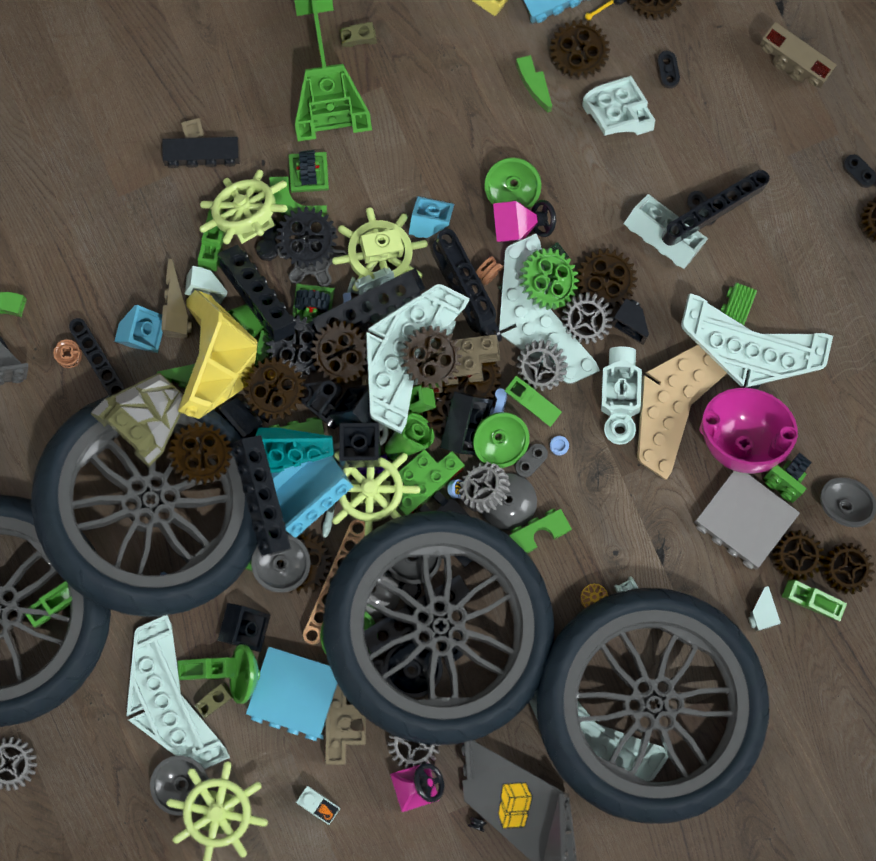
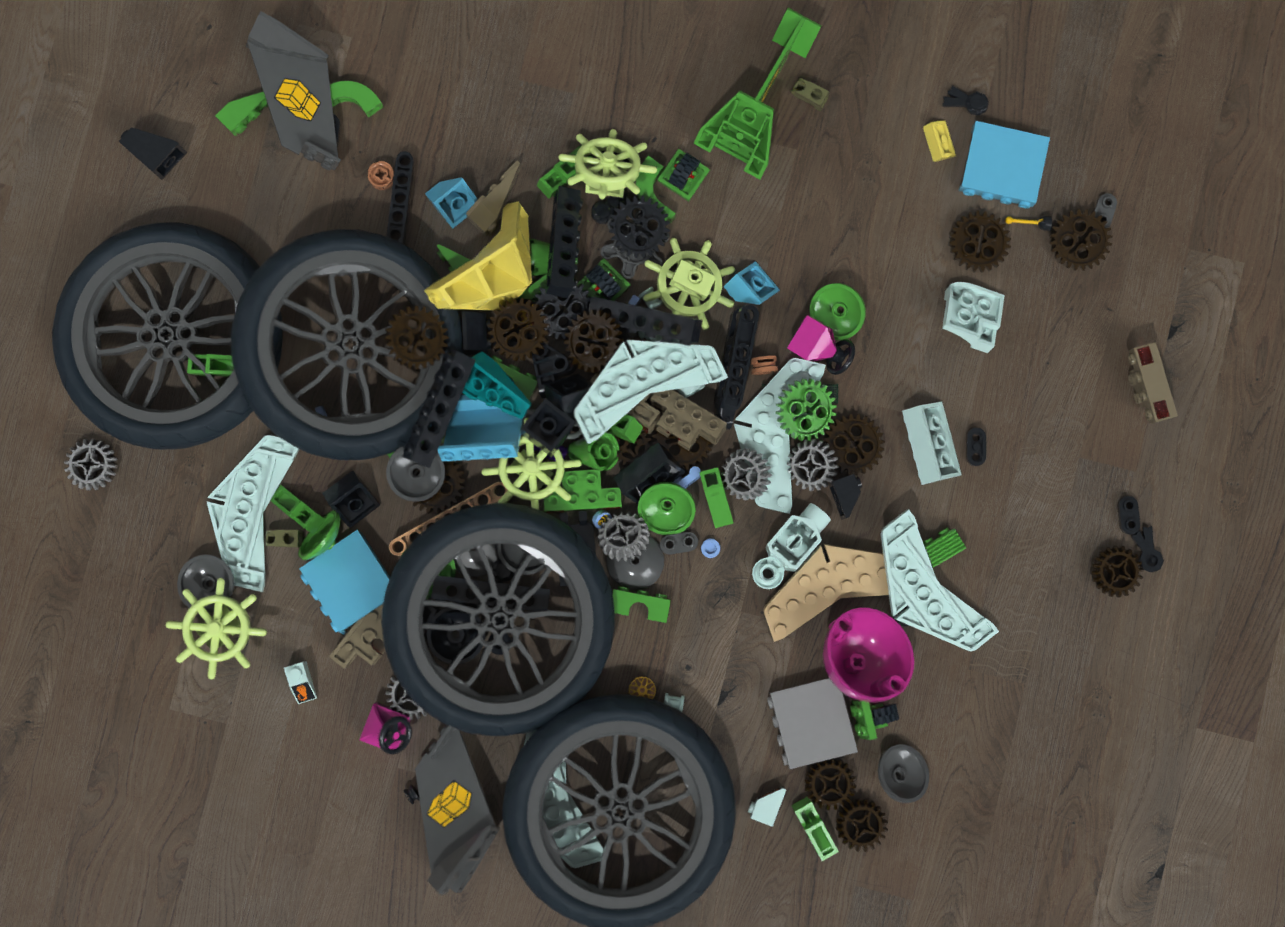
camera: 35 degrees right, 5 degrees up
(143, 415) = (394, 272): wedge -> none
(193, 129) = (618, 70): dark tan plate -> none
(201, 152) = (611, 93): black brick -> none
(205, 282) = (532, 202): light aqua slope -> none
(327, 524) = (478, 468): light aqua piece -> none
(367, 283) = (656, 302): light aqua hinge -> none
(439, 372) = (661, 384): dark brown gear -> none
(534, 82) = (921, 240): bright green slope -> none
(668, 70) = (1039, 314): black plate -> none
(708, 210) = (978, 458): black beam -> none

